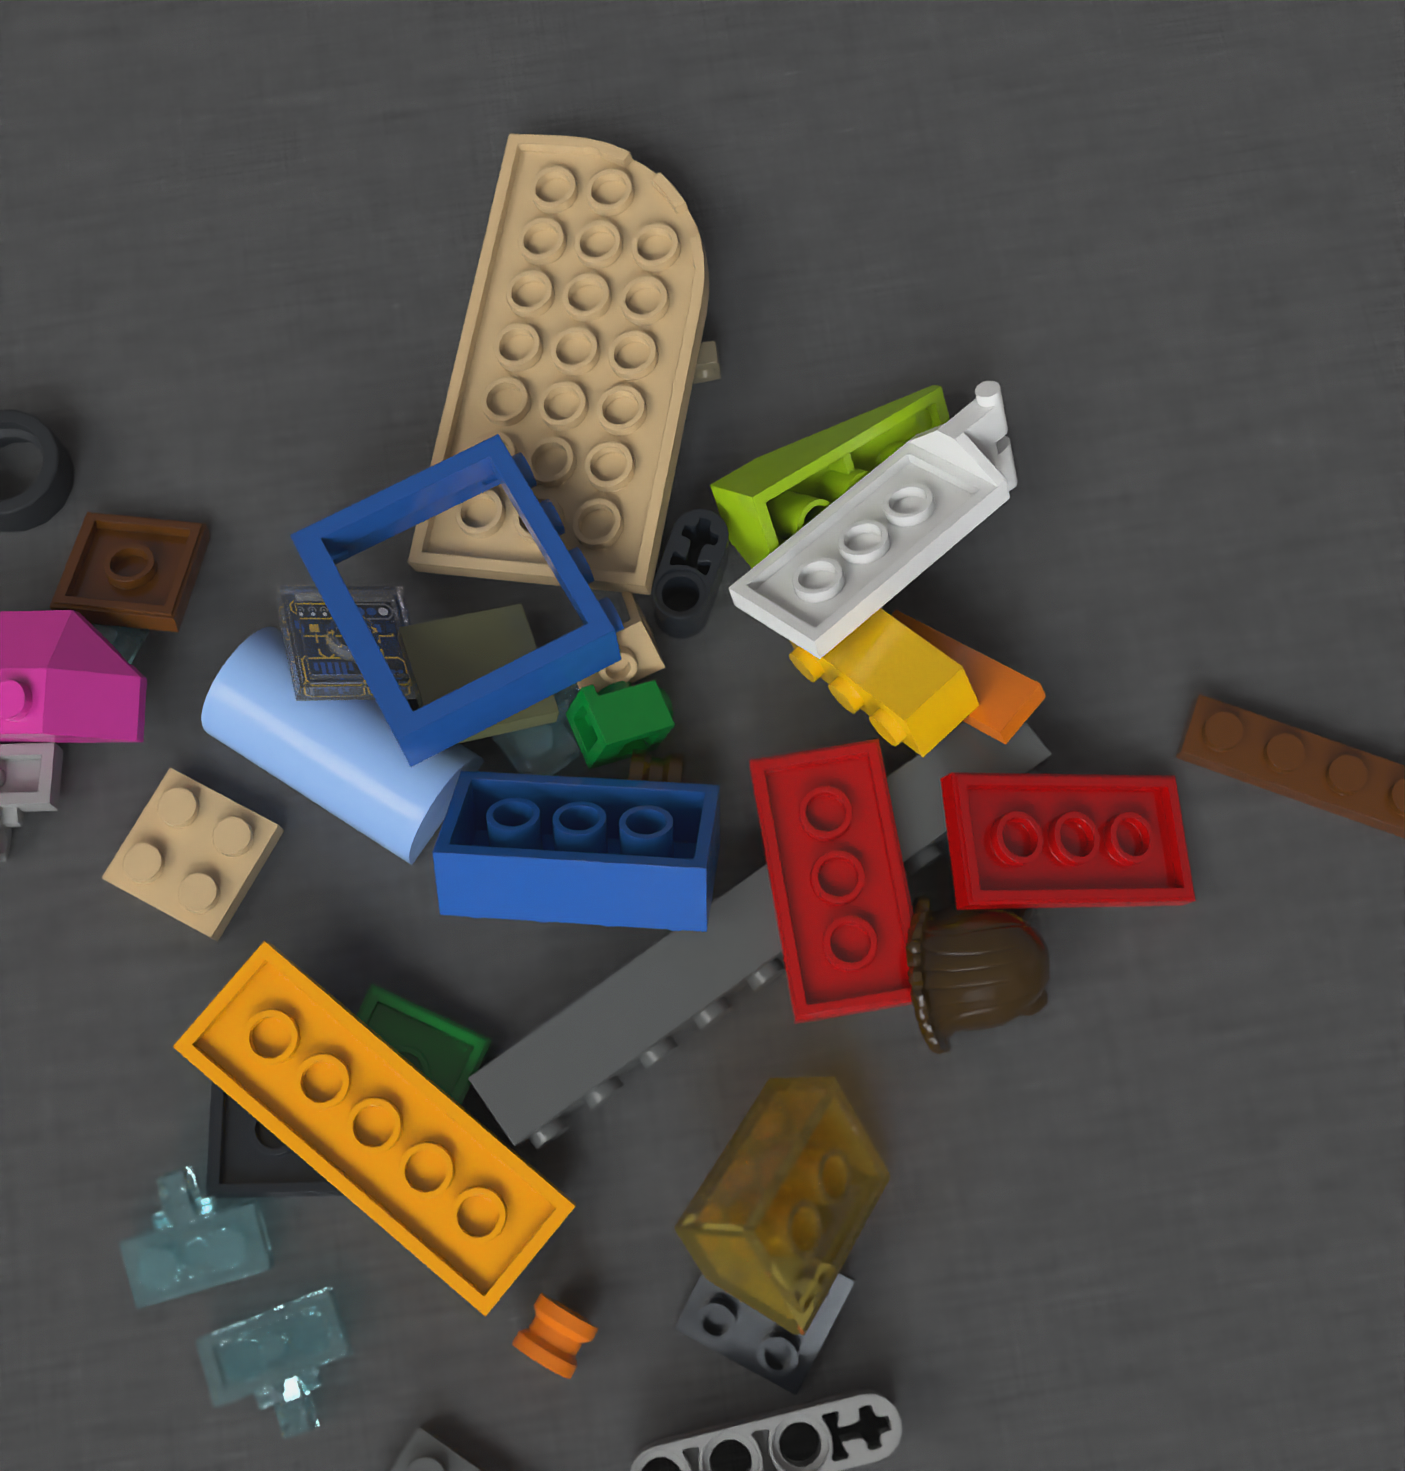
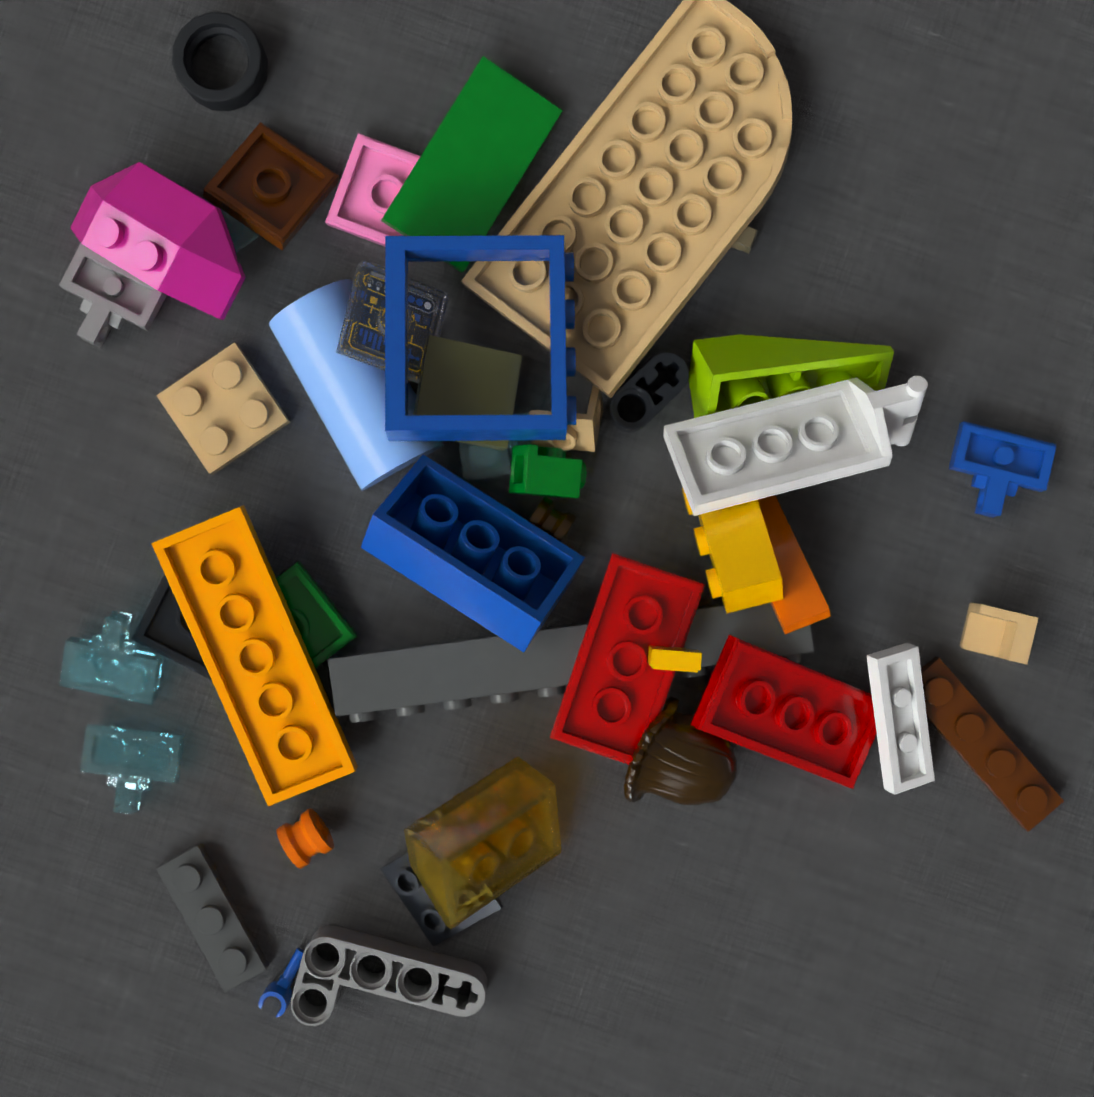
camera: 25 degrees right, 15 degrees up
(257, 511) = (368, 188): none -> bright pink tile
(353, 420) = (473, 158): none -> green tile
(892, 834) = (674, 658): none -> yellow tile
(1132, 450) = (1000, 464): none -> blue hinge
(1199, 782) = (900, 718): none -> white plate
(1248, 628) = (998, 633): none -> tan panel

